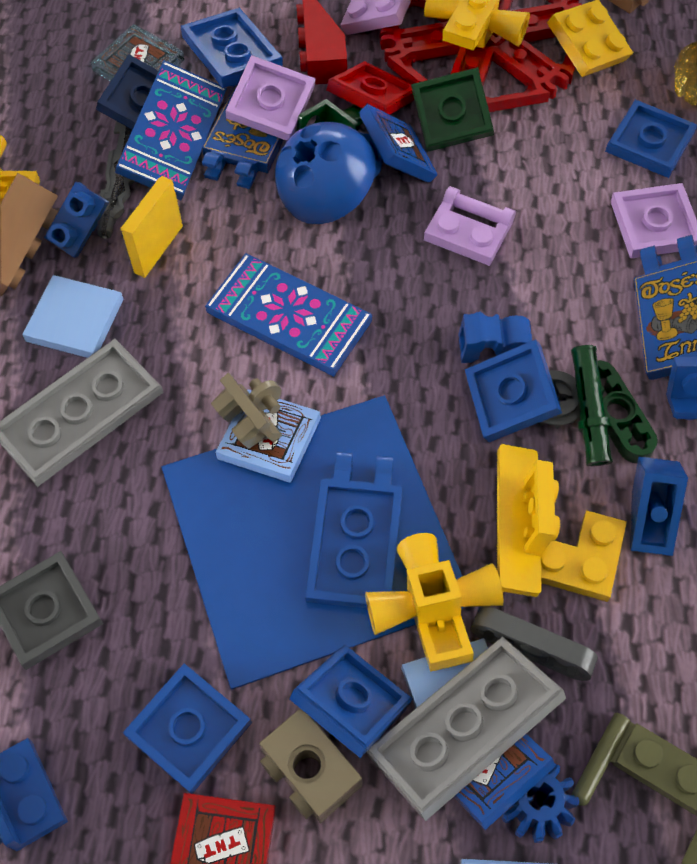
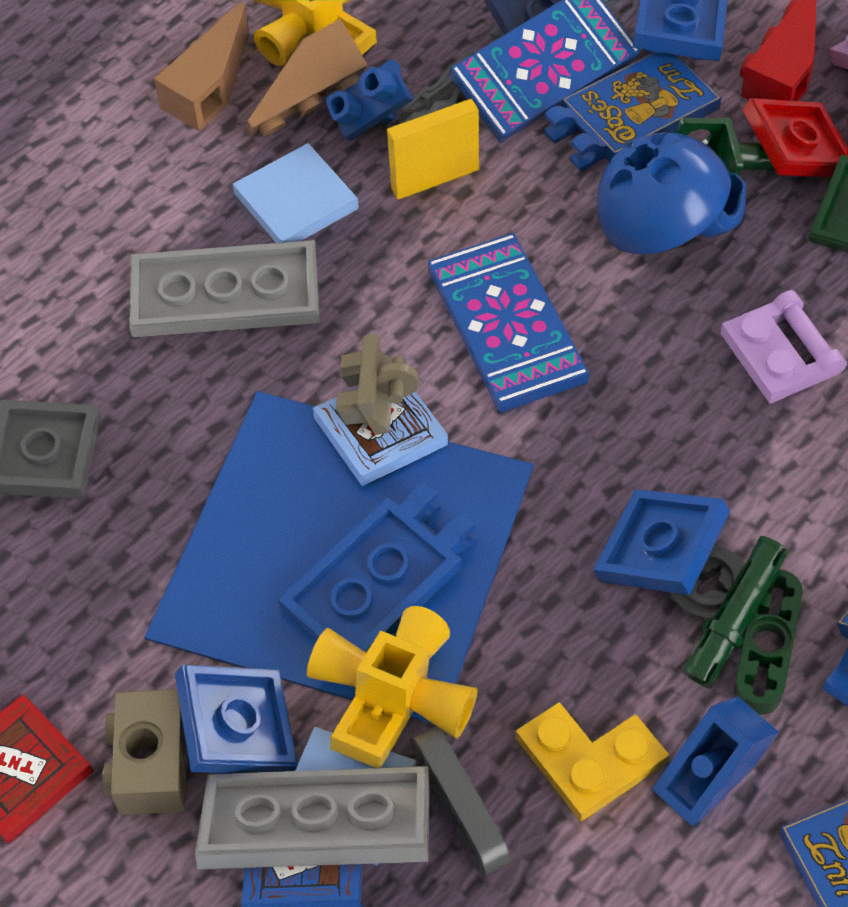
camera: 40 degrees right, 5 degrees down
(187, 728) = (74, 641): blue plate -> none
(270, 98) = (669, 83): lavender plate -> none
(397, 144) = (770, 211): blue tile -> none
(483, 332) = (696, 471): blue leg -> none
(524, 517) = (553, 672): yellow bracket -> none

